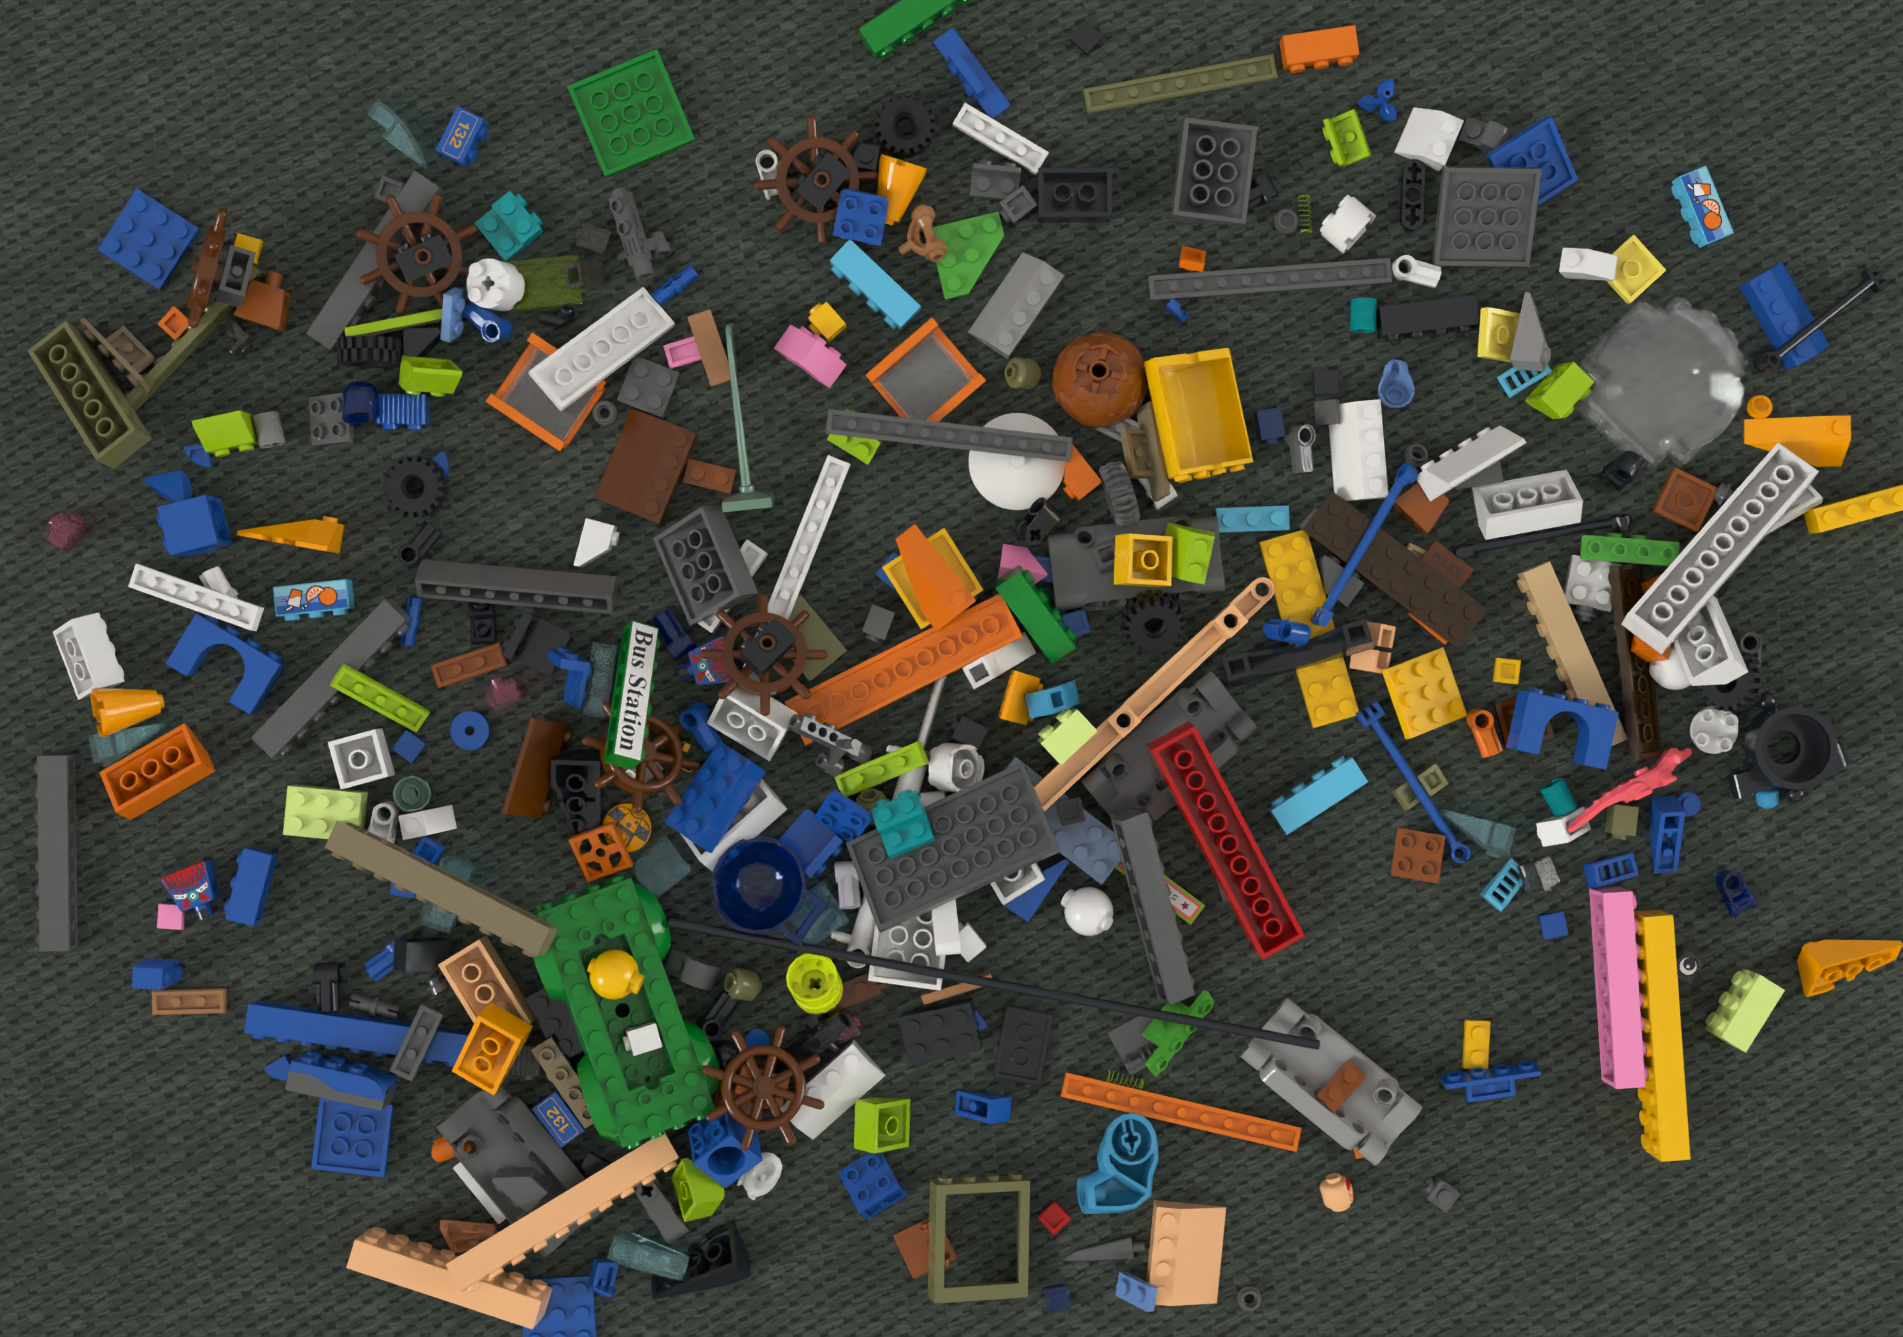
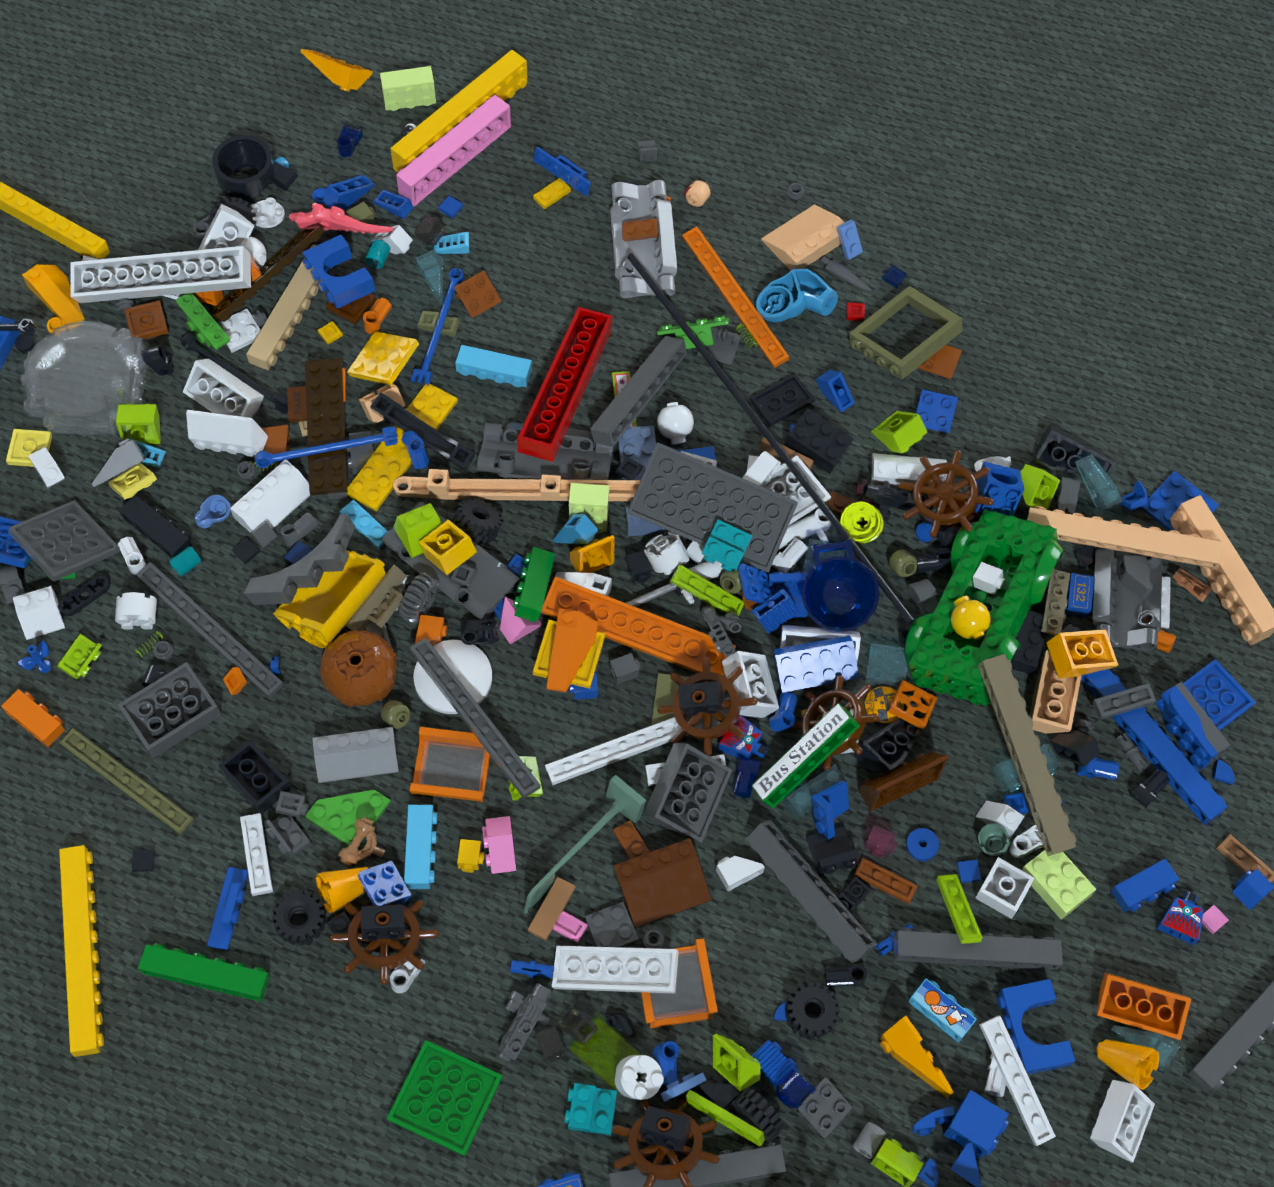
camera: 135 degrees left, 25 degrees down
(238, 489) = (927, 1123): none -> blue slope
(802, 812) = (775, 611): none -> blue brick
(1239, 410) = (307, 572): none -> dark grey arch

